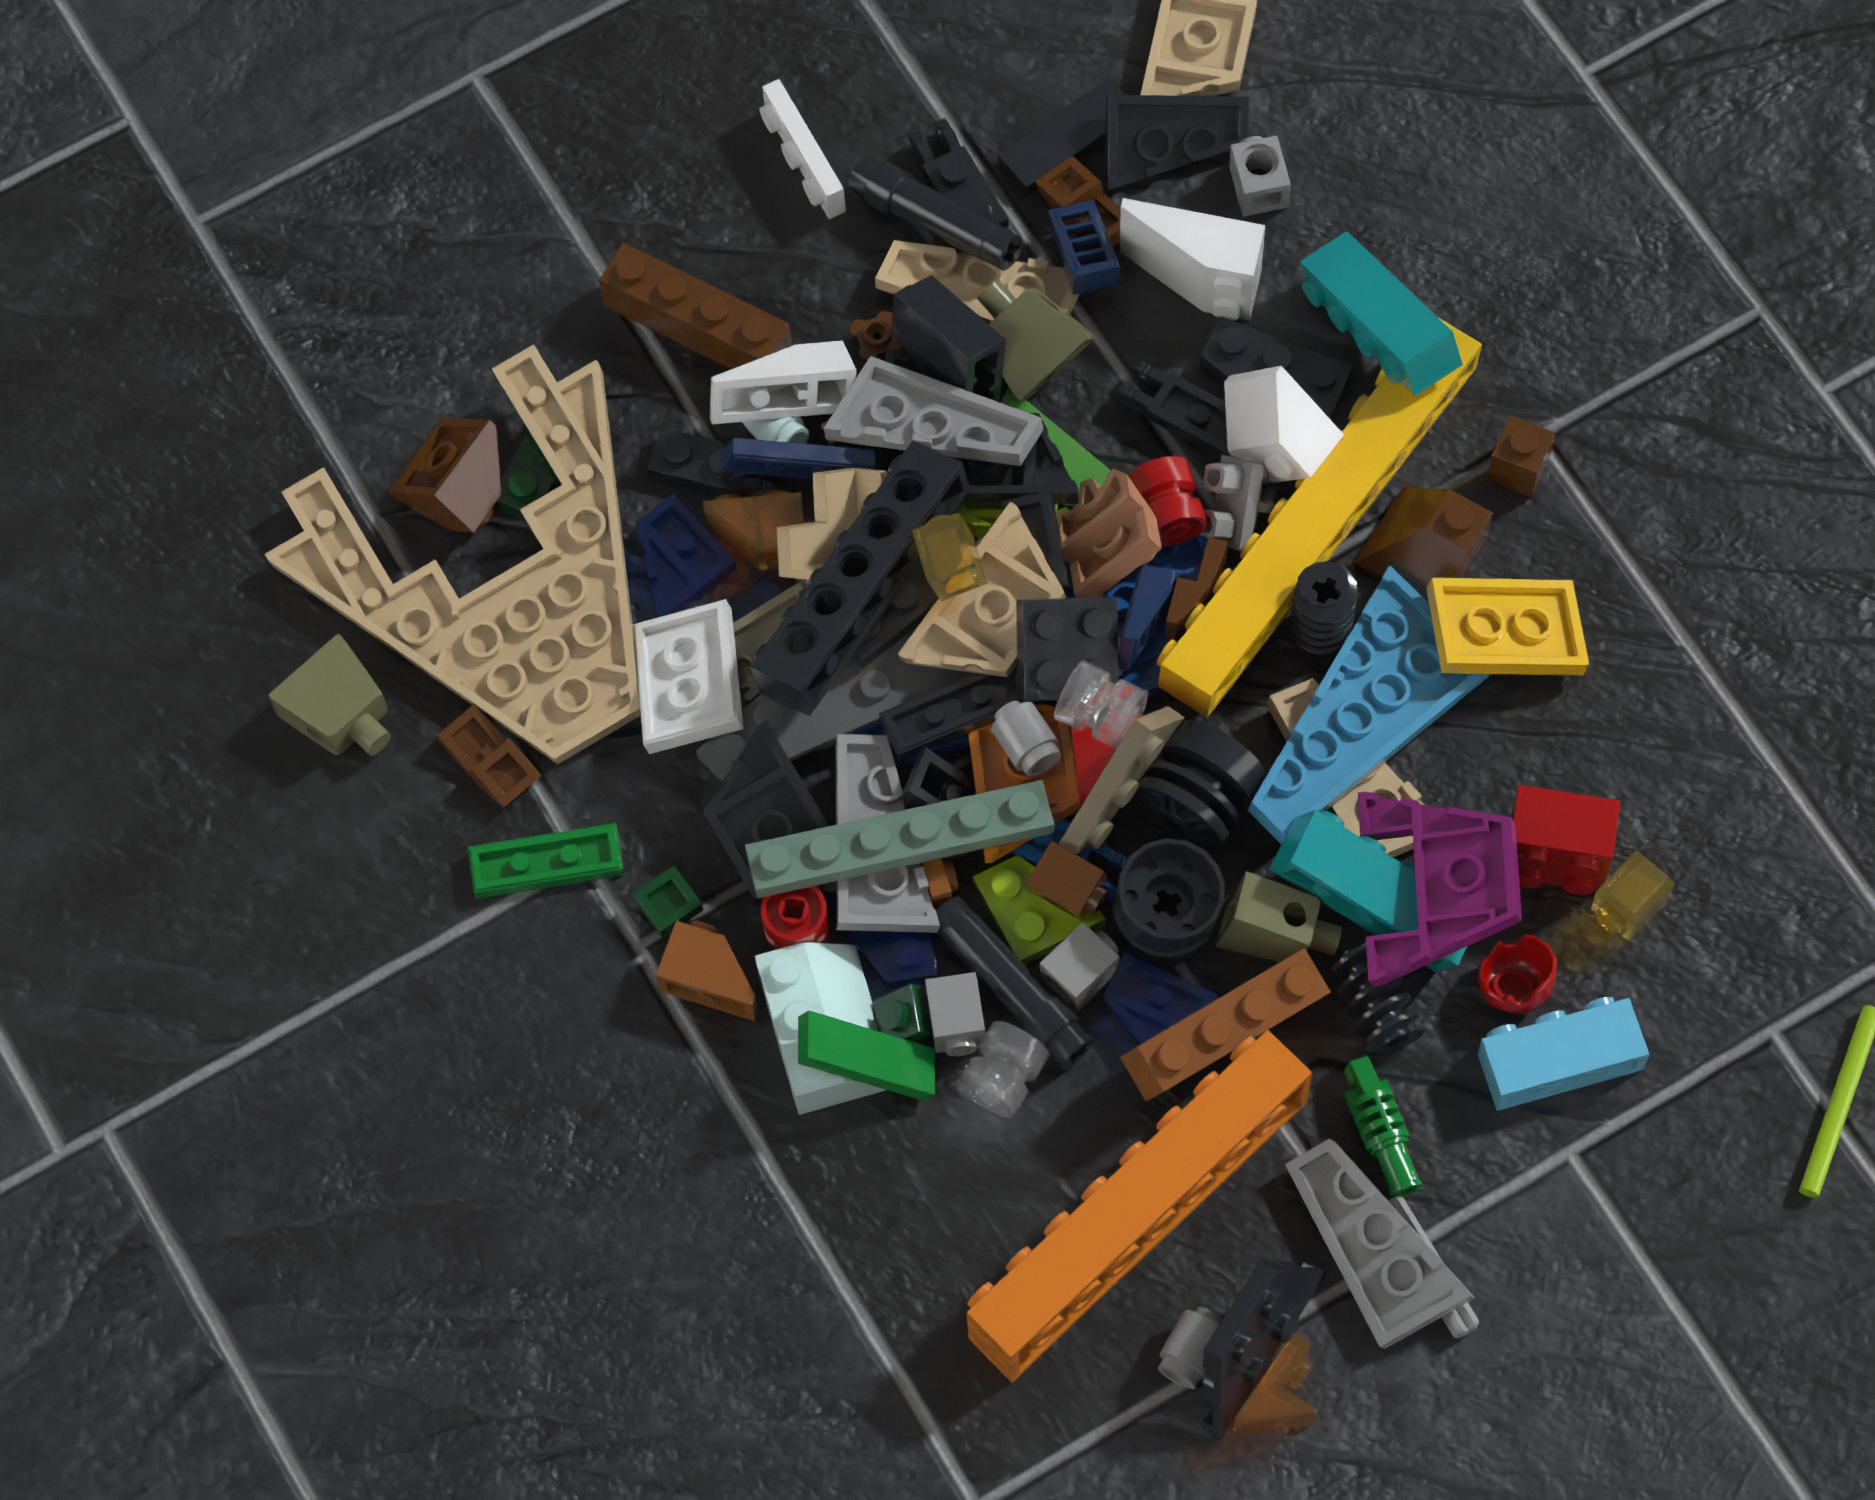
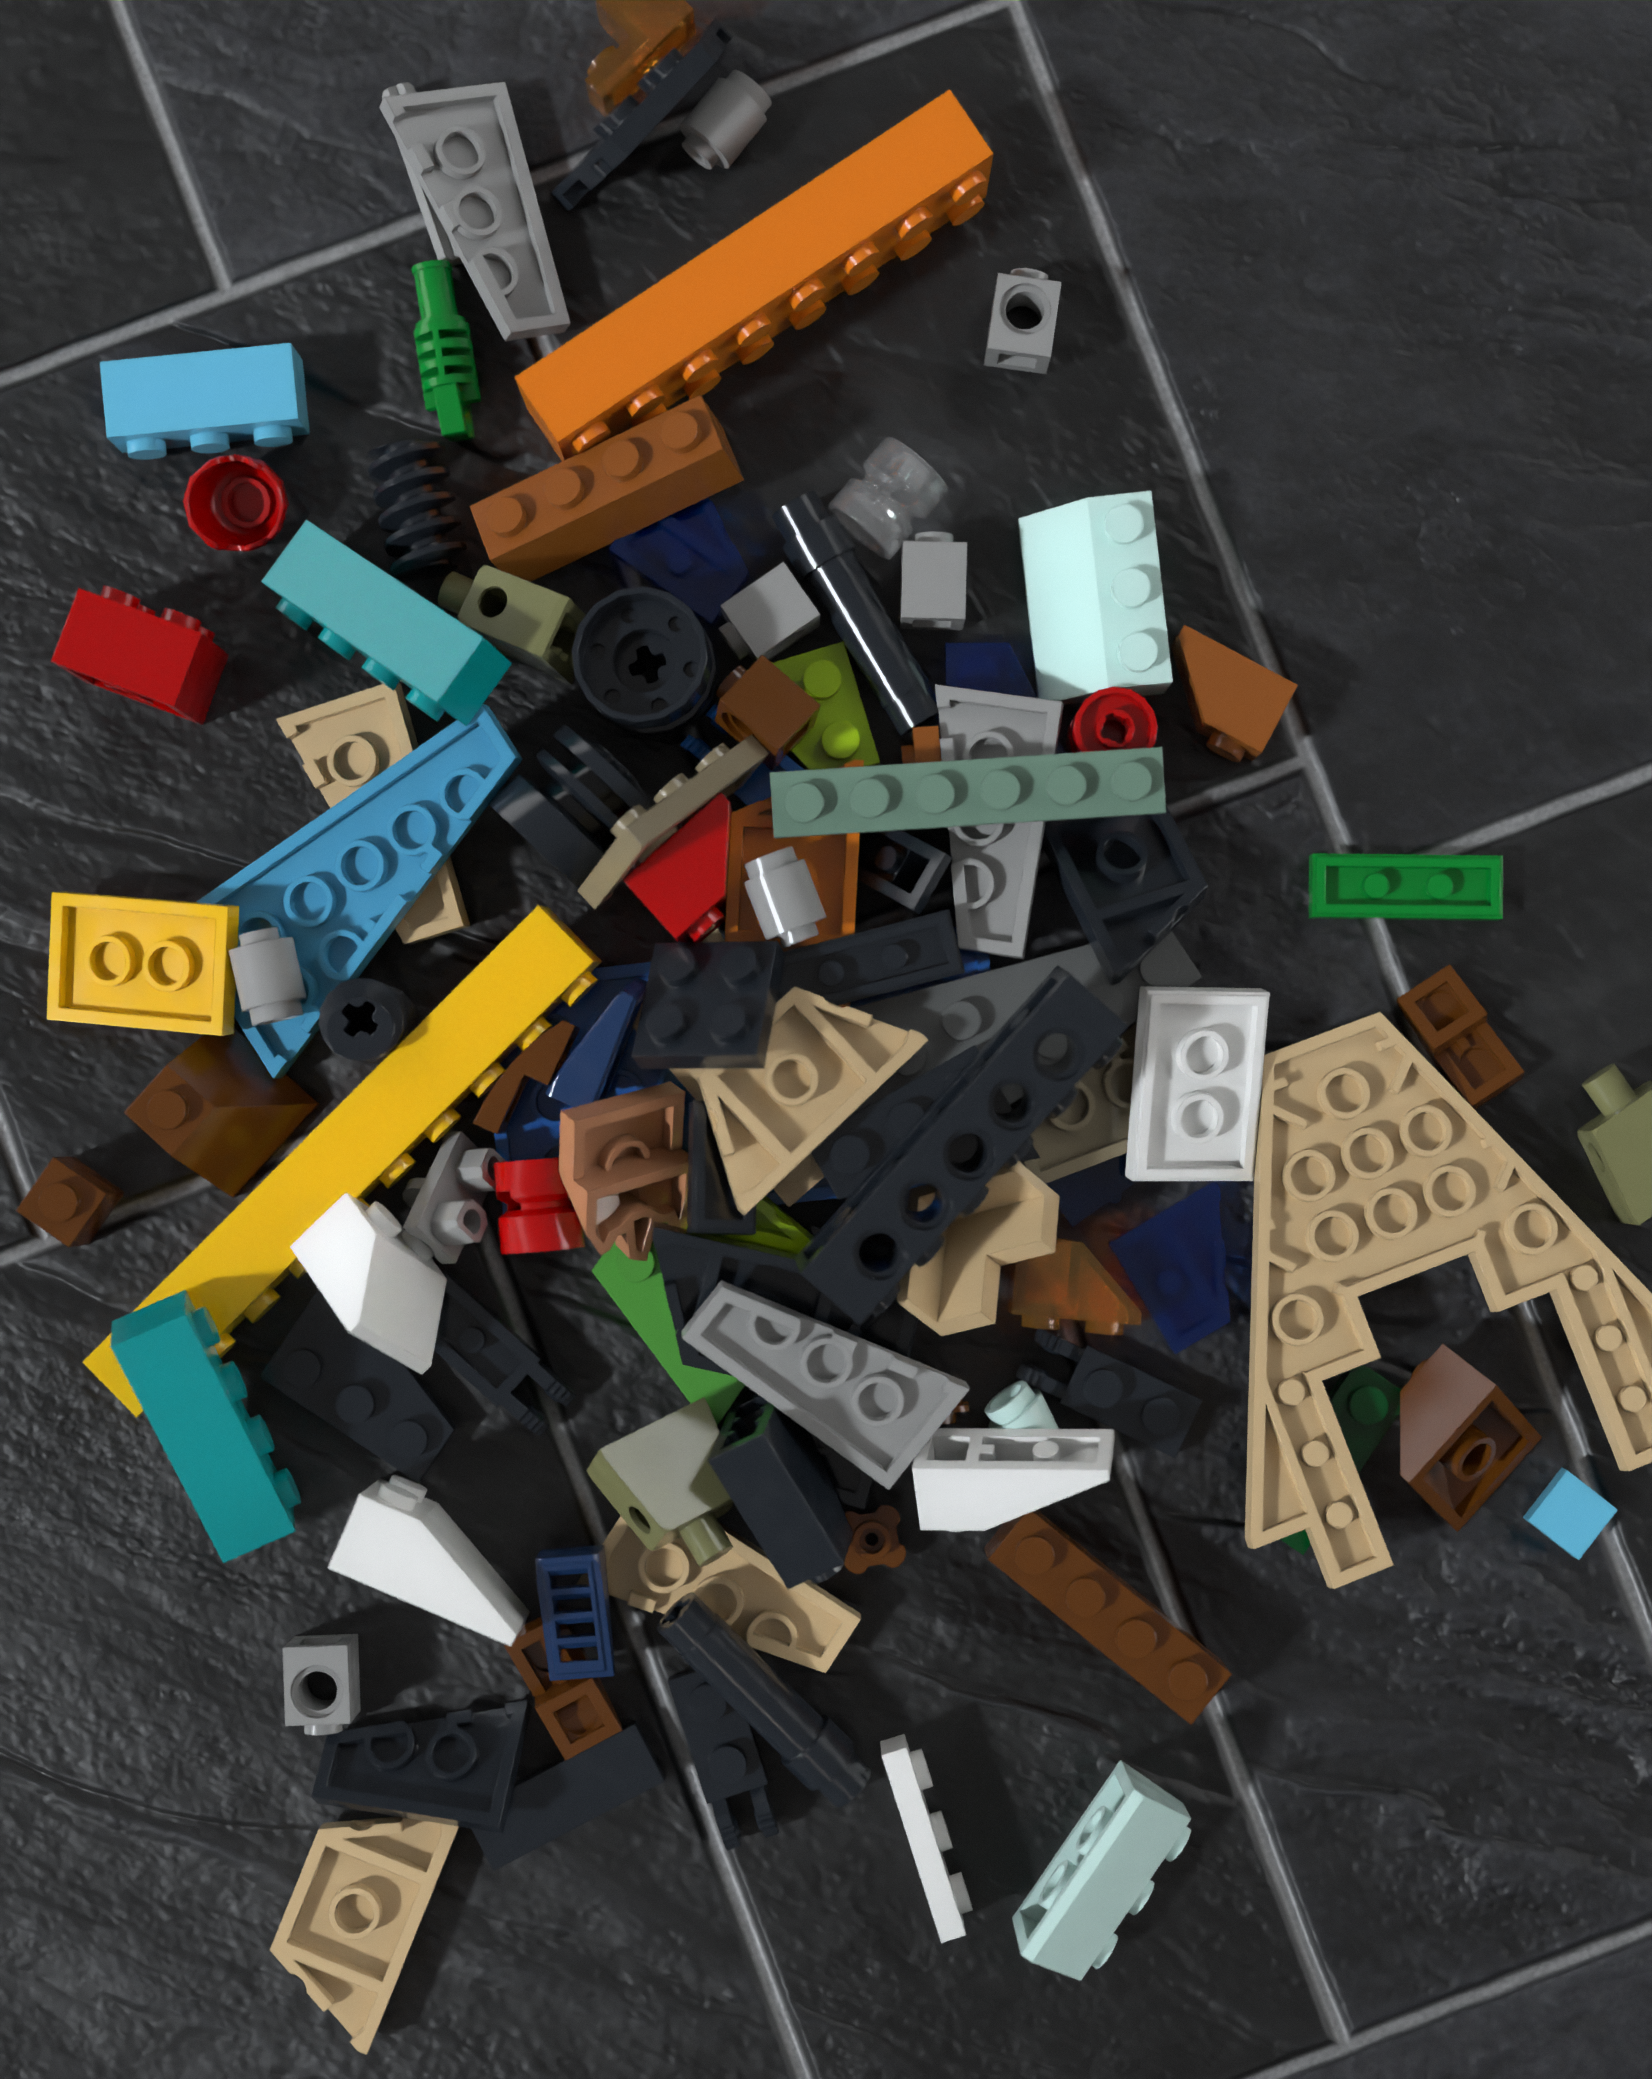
camera: 175 degrees left, 20 degrees up
(359, 442) = (1570, 1513): none -> medium azure tile
(667, 901) = (1263, 798): dark green plate -> none
(672, 145) = (1100, 1874): none -> light aqua slope
(791, 459) = (1008, 1360): dark blue tile -> none
(866, 1055) = (1056, 529): green tile -> none
(904, 1013) = (998, 592): dark green plate -> none
(920, 1207) = (1016, 347): none -> light grey brick
(949, 556) = (840, 1145): clear yellow brick -> none
(1098, 703) = (681, 891): clear wheel -> none
(1406, 622) = (268, 976): none -> light grey brick
(1462, 880) = (272, 598): magenta wing -> none
(1631, 896) = (64, 568): clear yellow brick -> none

